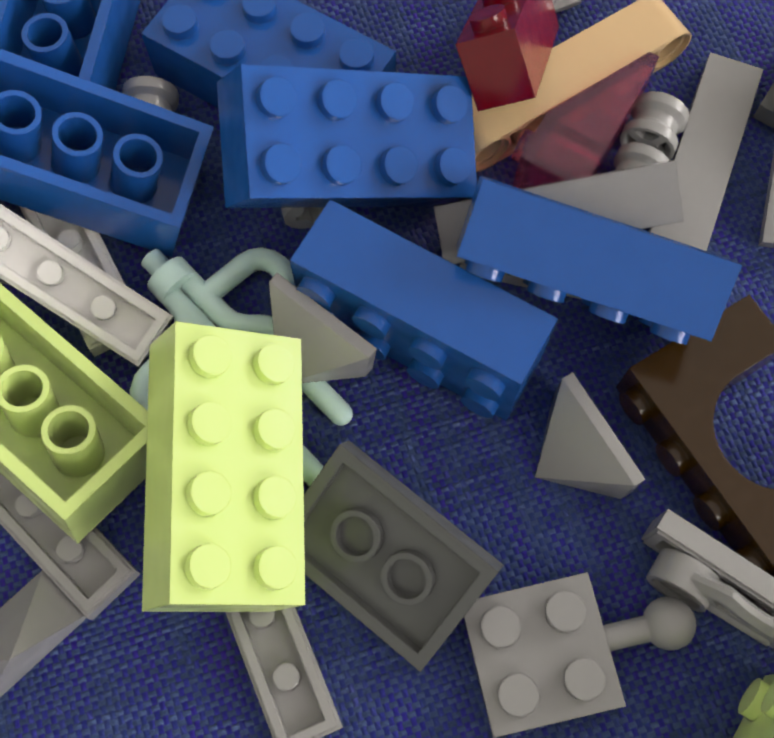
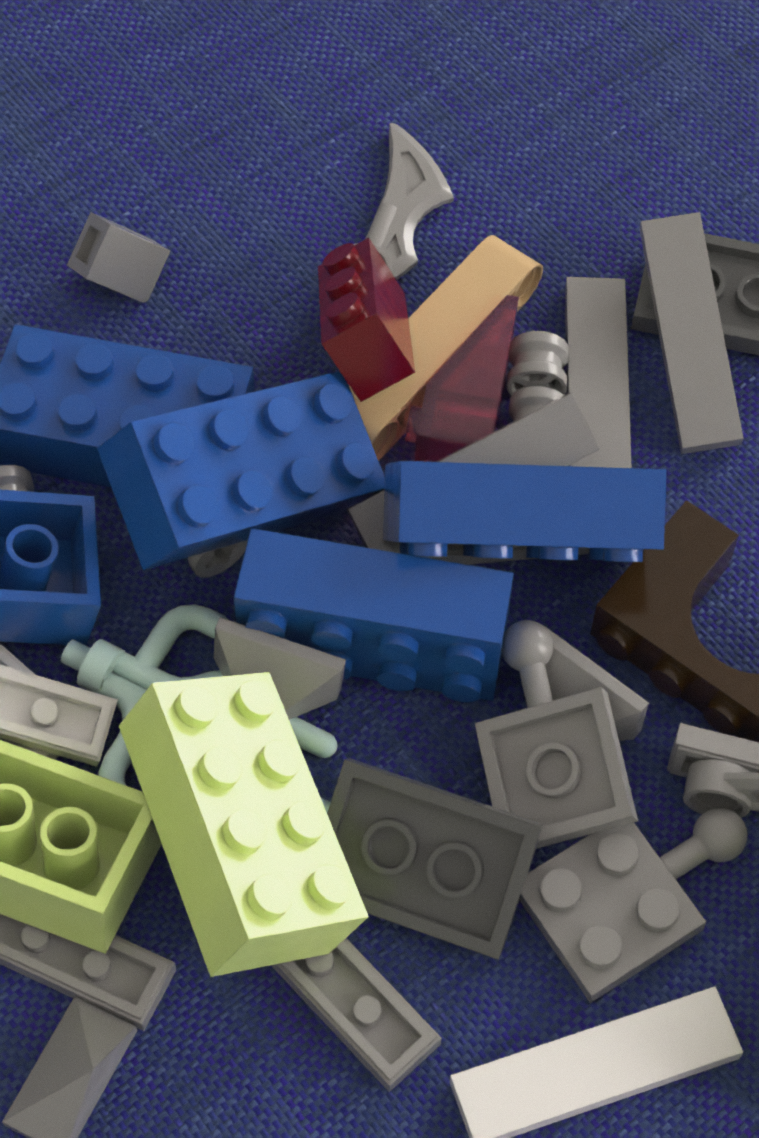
camera: 20 degrees left, 10 degrees down
(541, 503) = (557, 756): none -> light grey plate

